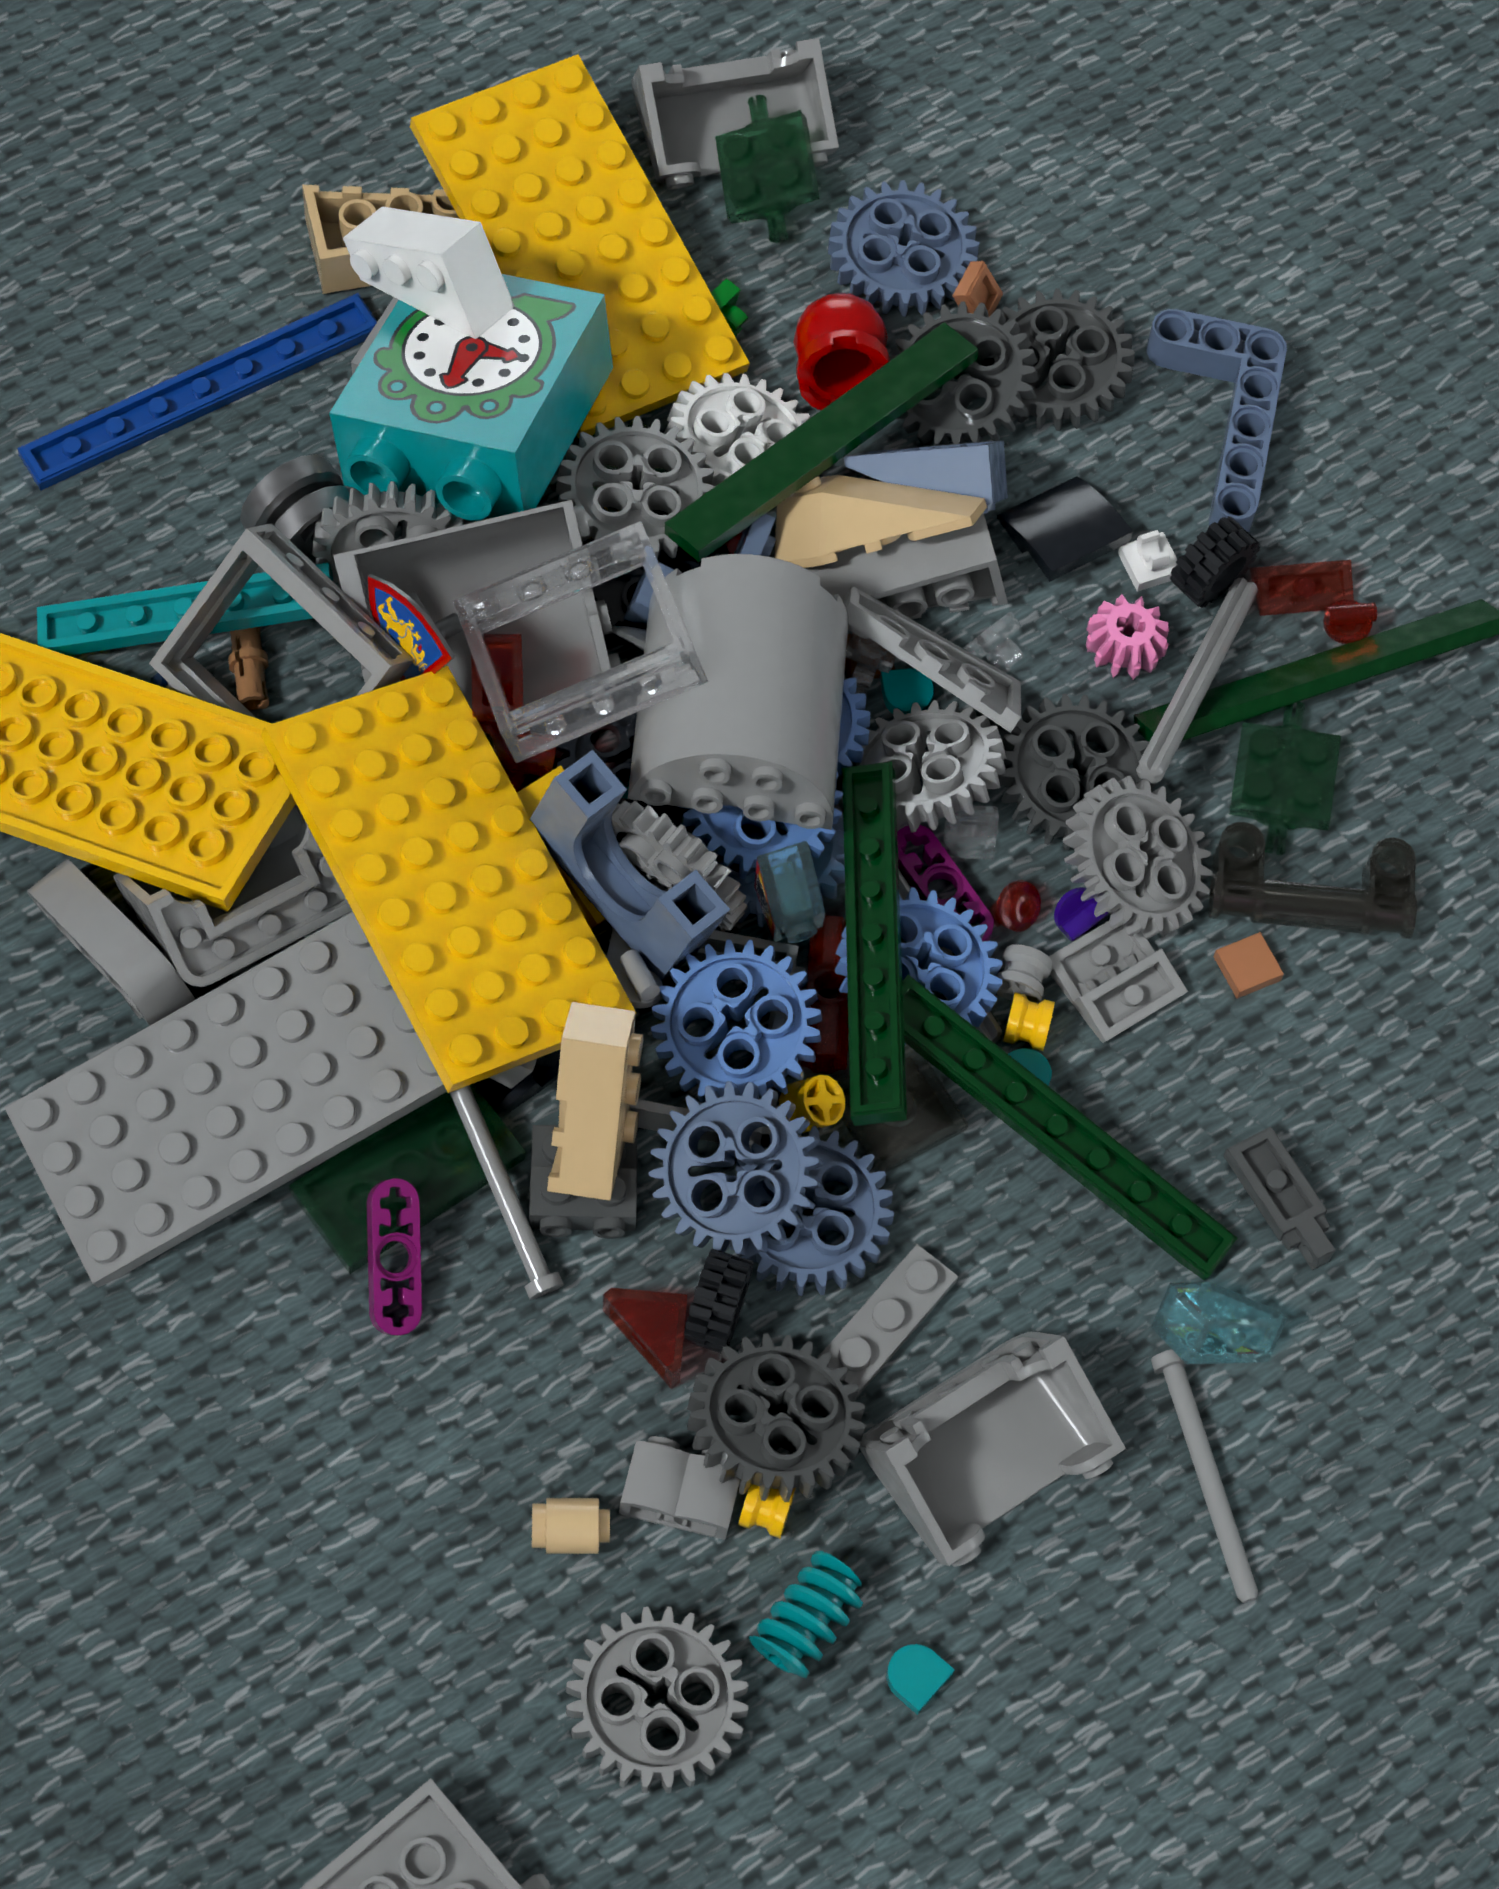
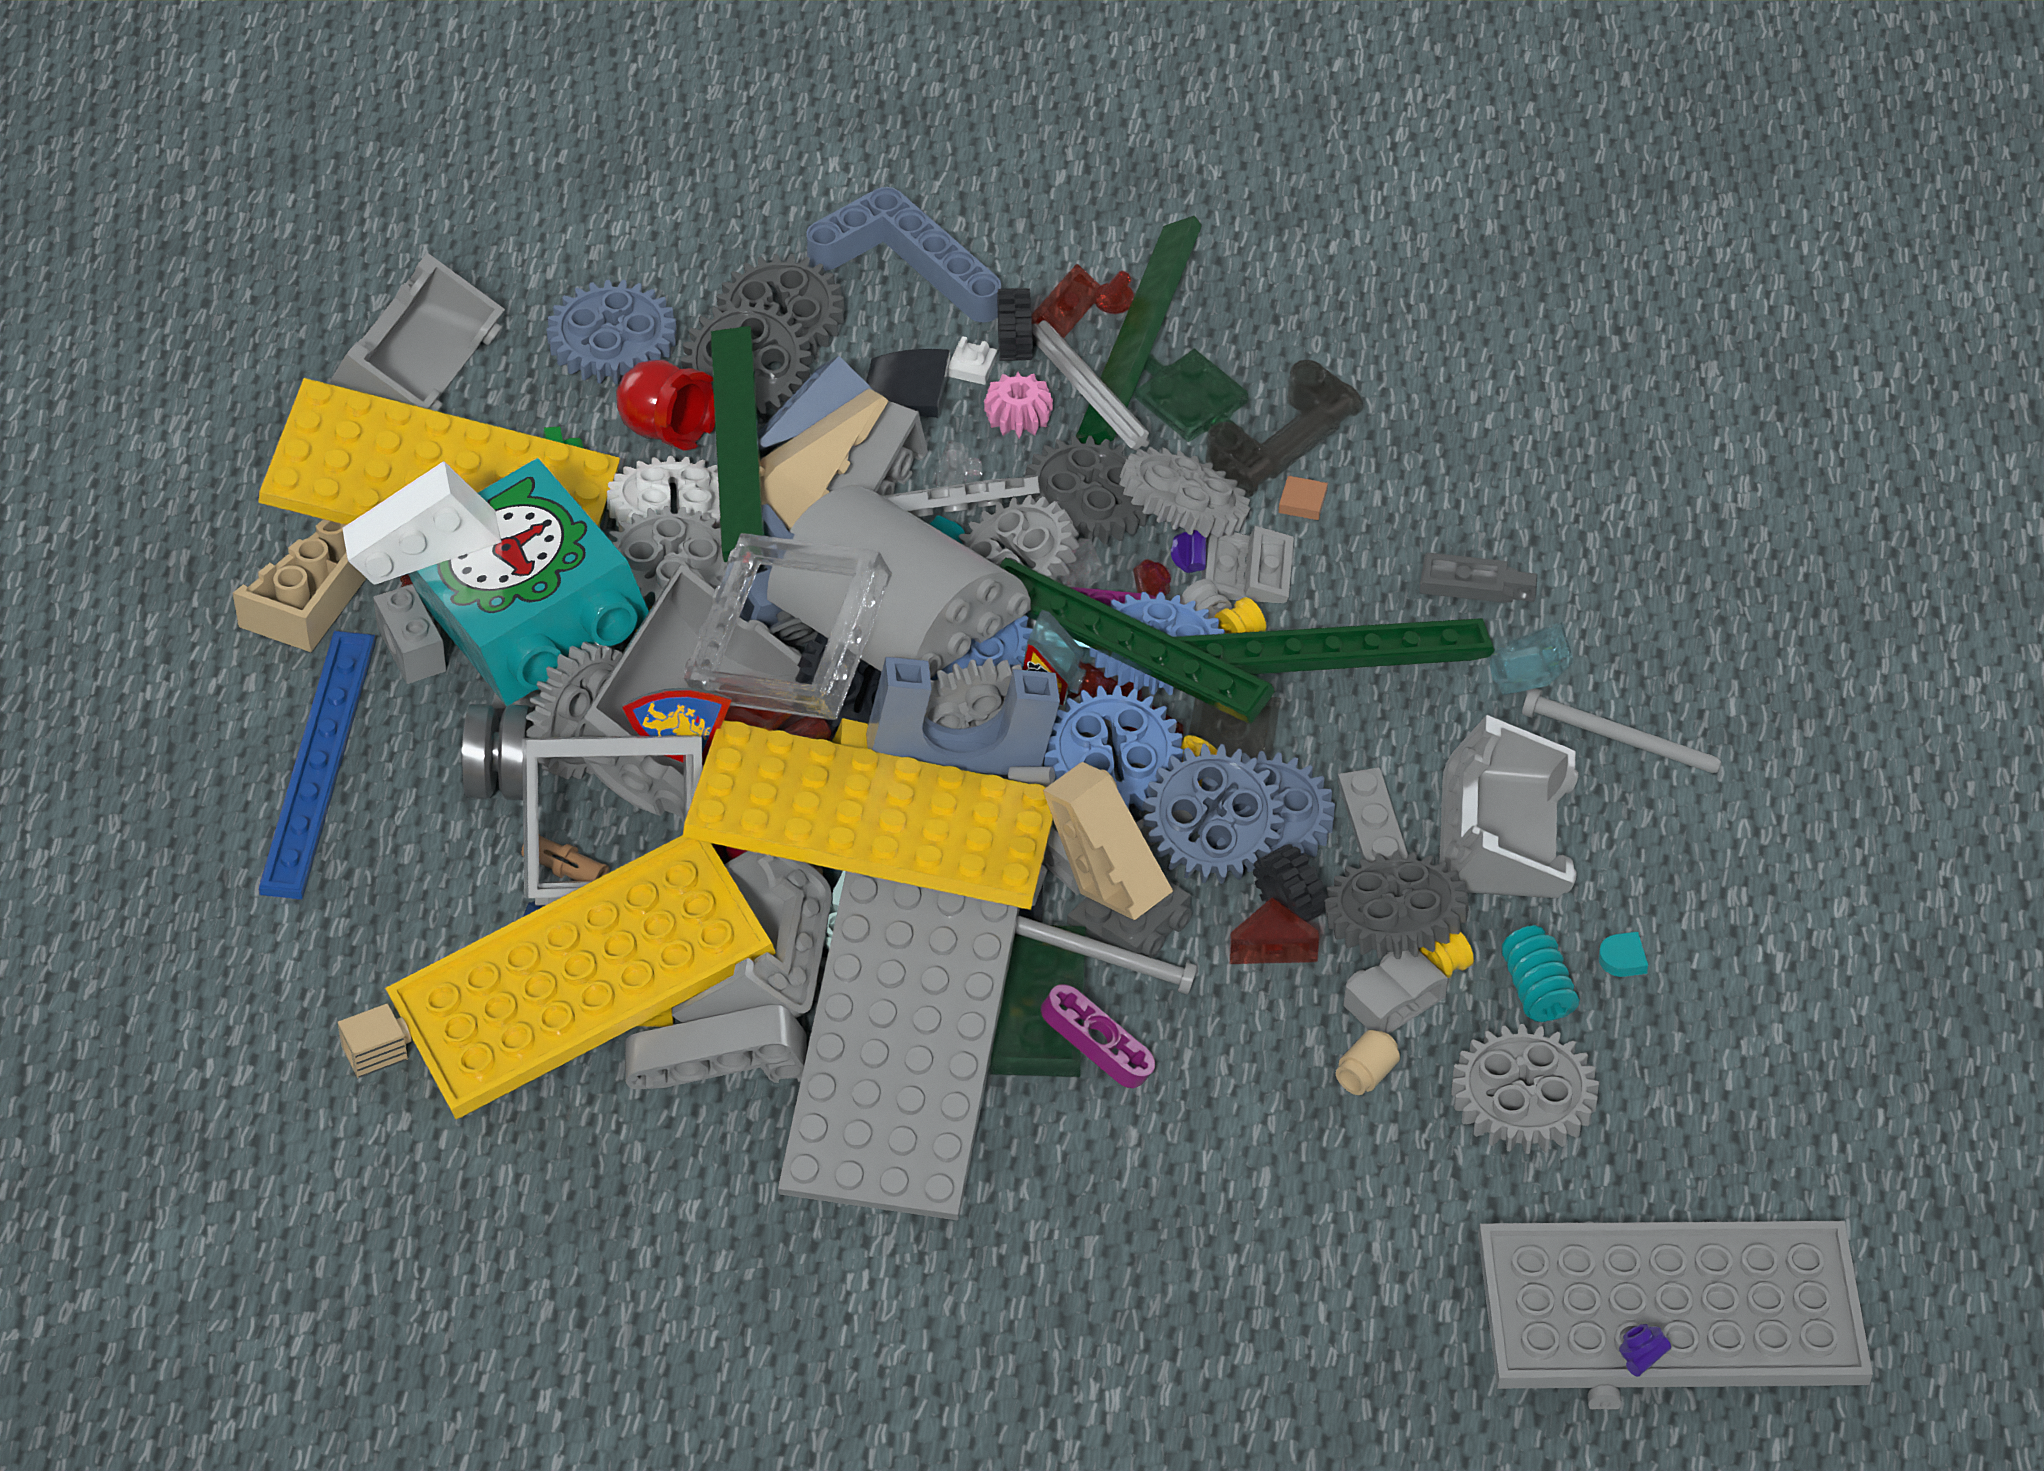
camera: 45 degrees left, 15 degrees down
(154, 613) = (497, 865): teal plate -> none
(767, 168) = (477, 356): clear green plate -> none
(978, 286) = (684, 311): nougat tile -> none

